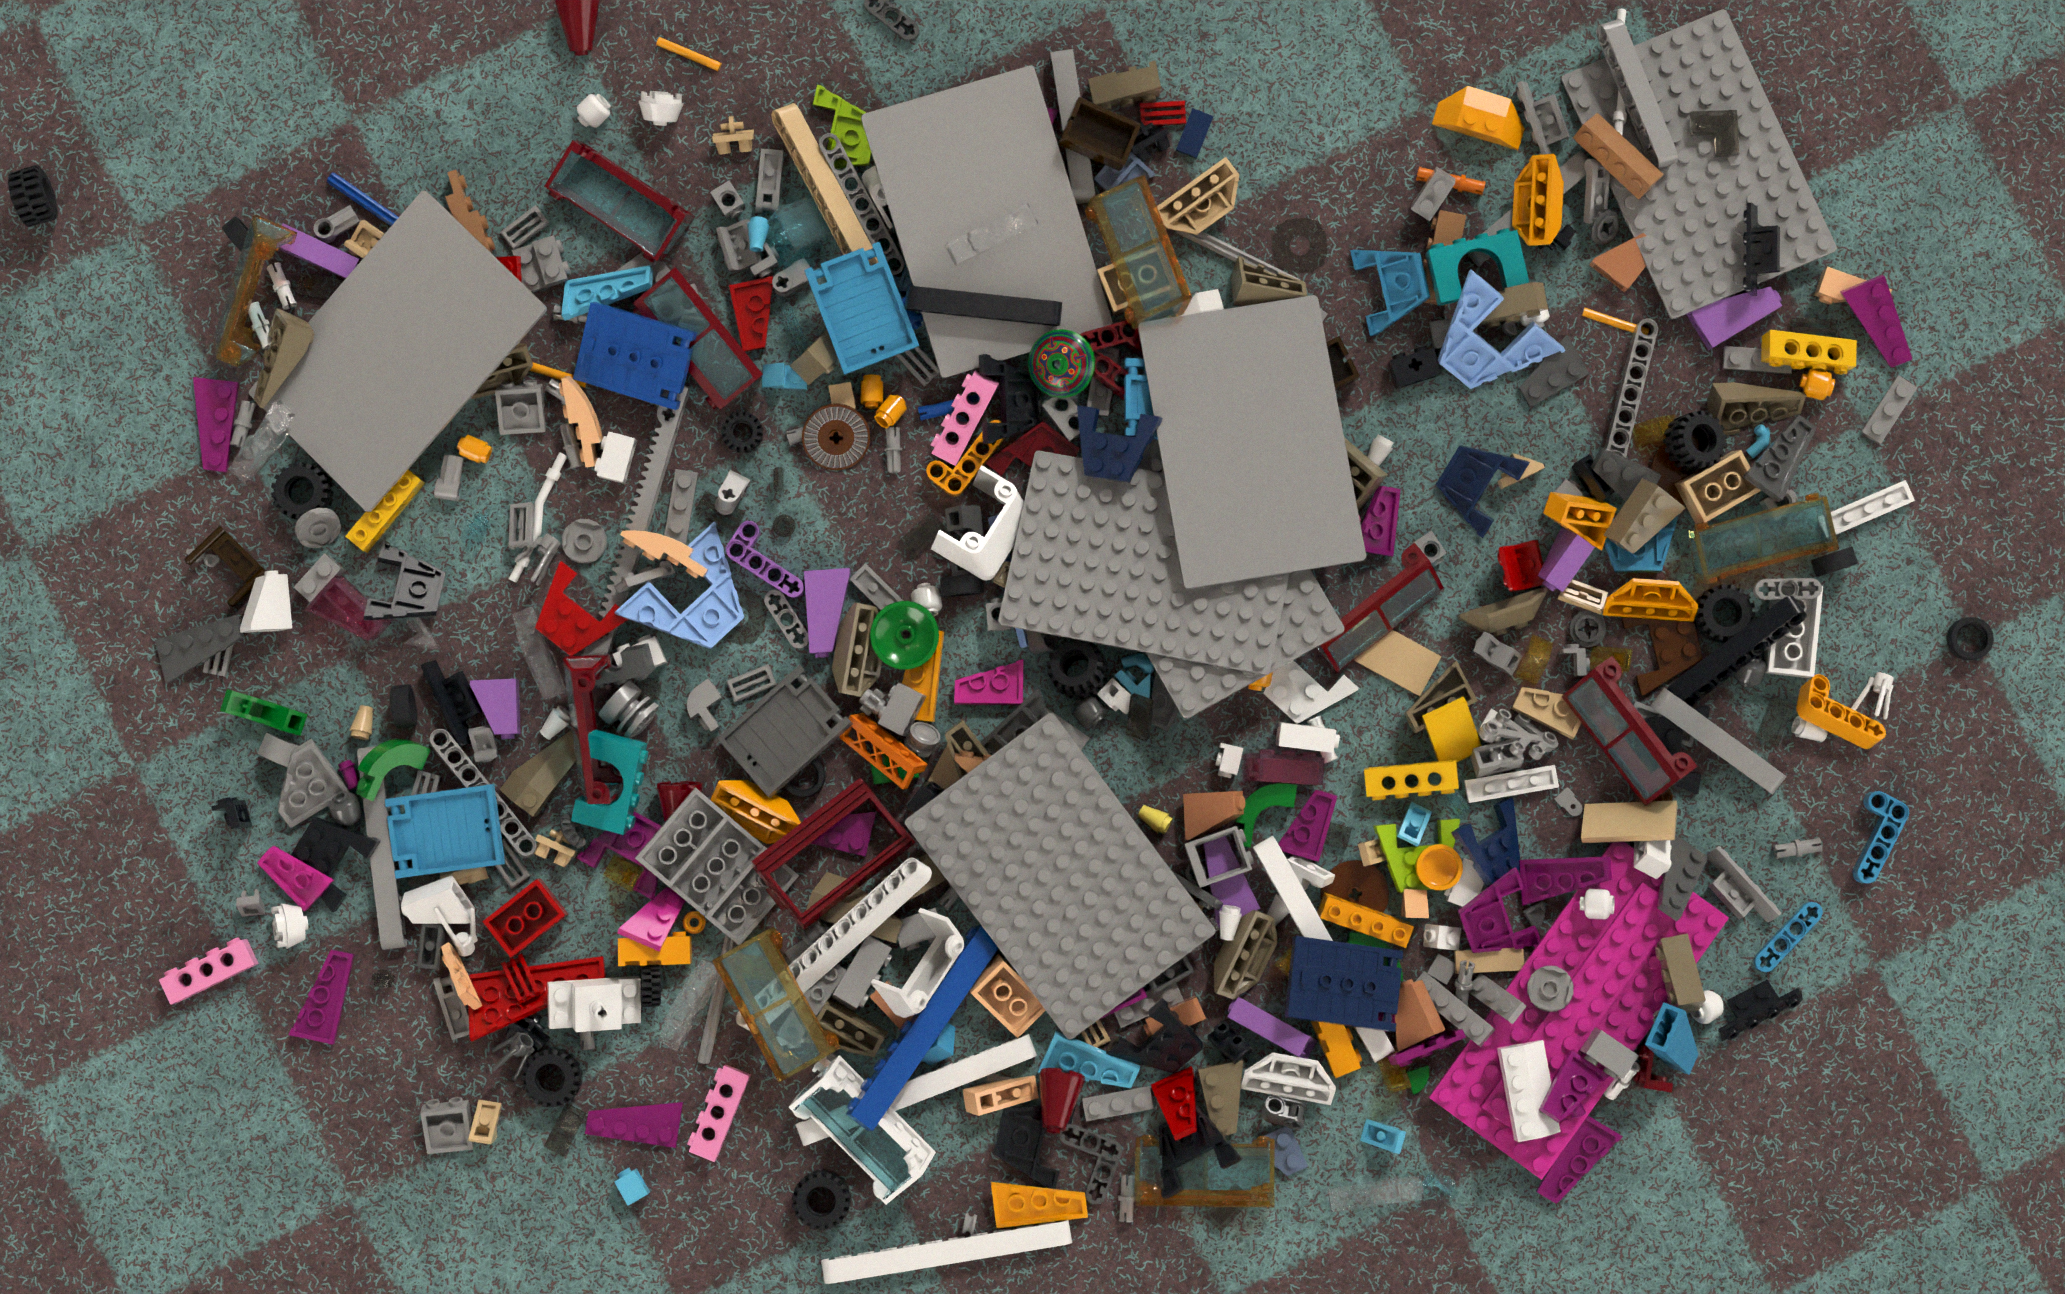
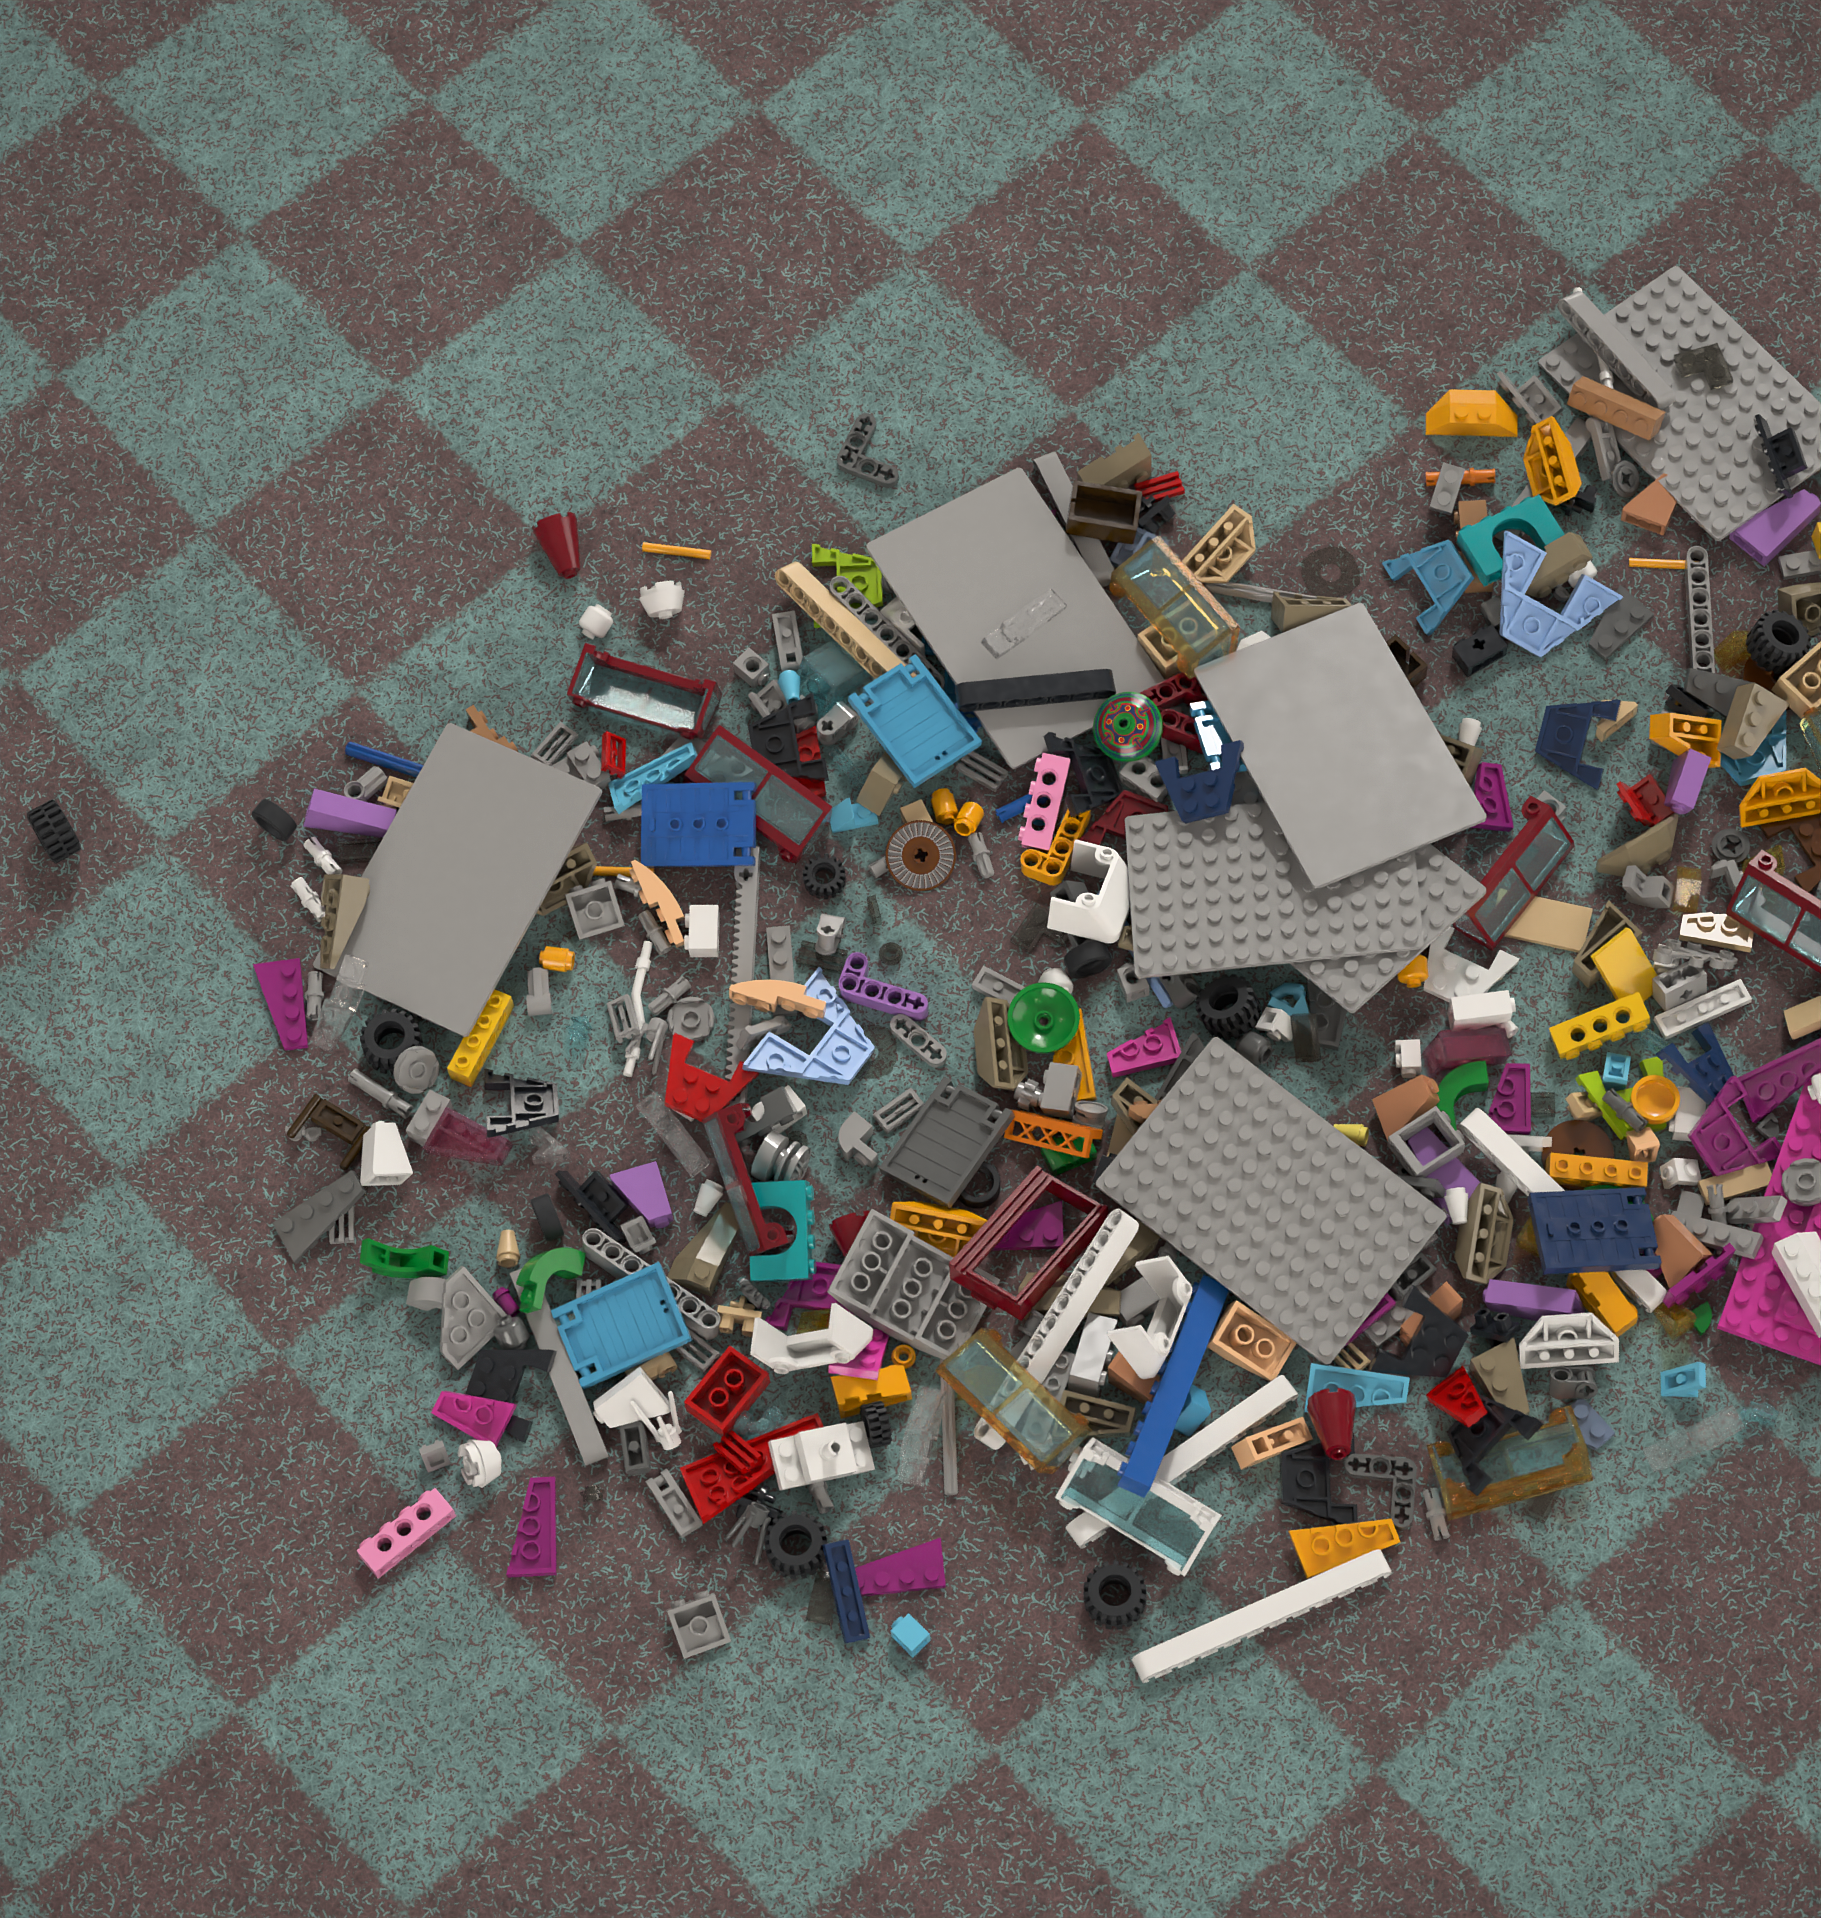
camera: 10 degrees left, 20 degrees down
(232, 340) = (280, 907): clear orange windscreen -> none
(236, 812) = (390, 1358): black bracket -> none
(278, 534) = (388, 1098): none -> light grey pin
(460, 977) = (675, 1464): light nougat wing -> none
(485, 1122) = (738, 1609): tan slope -> none
(558, 953) = (746, 1424): none -> clear light blue arm
(569, 513) = (669, 996): none -> light grey axle
(572, 253) = (609, 754): none -> red tile
(584, 1133) = (846, 1591): none -> dark blue plate
(606, 902) = (838, 1344): none -> white windscreen
(710, 1148) = (981, 1498): bright pink brick -> none
(729, 289) = (777, 741): none -> black wing
(743, 137) = (752, 609): tan hips -> none
(825, 604) = (953, 1015): medium lavender slope -> none
(969, 1223) = (1277, 1581): light grey bush -> none
(1117, 1103) = (1397, 1422): light grey plate -> none
(1194, 133) = (1195, 498): dark blue tile -> none
(1408, 872) = (1624, 1110): none -> dark grey pin
(1566, 799) = (1763, 1012): light grey piece -> none
(1582, 599) = (1715, 816): tan tile -> none

